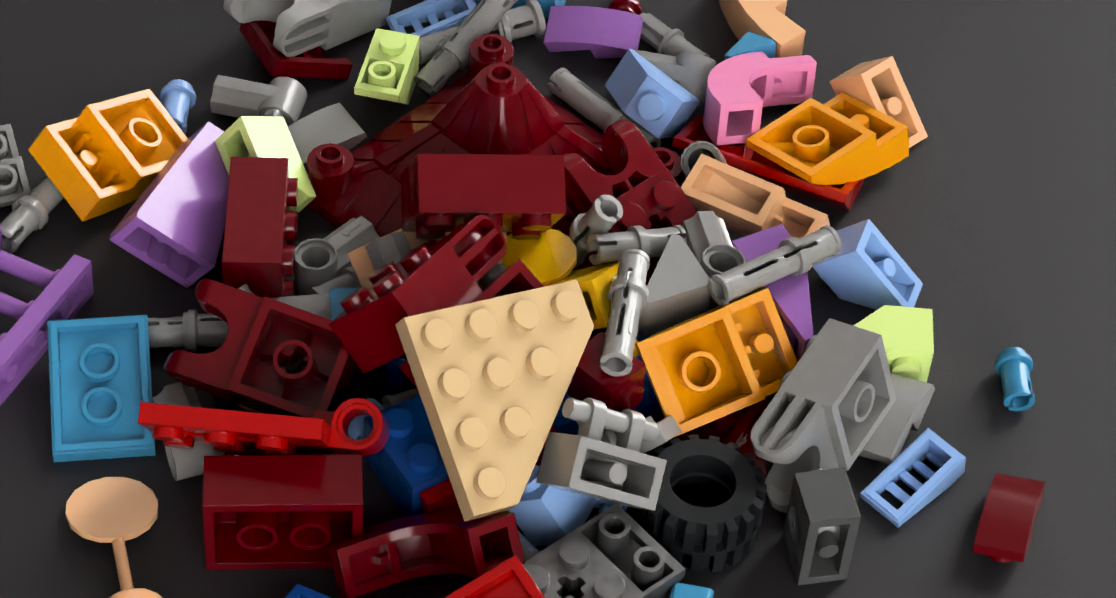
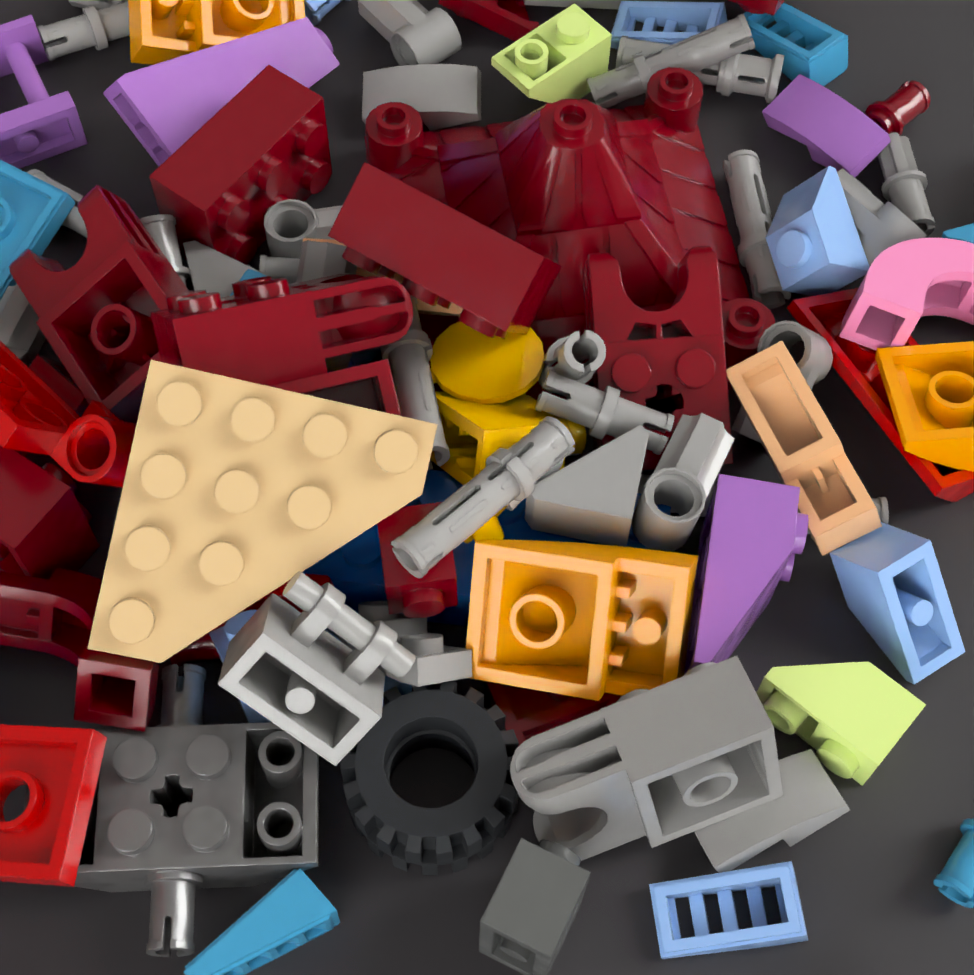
camera: 40 degrees right, 15 degrees up
(266, 139) = (347, 80): yellowish green slope -> none
(790, 258) = (809, 544): light grey pin -> none

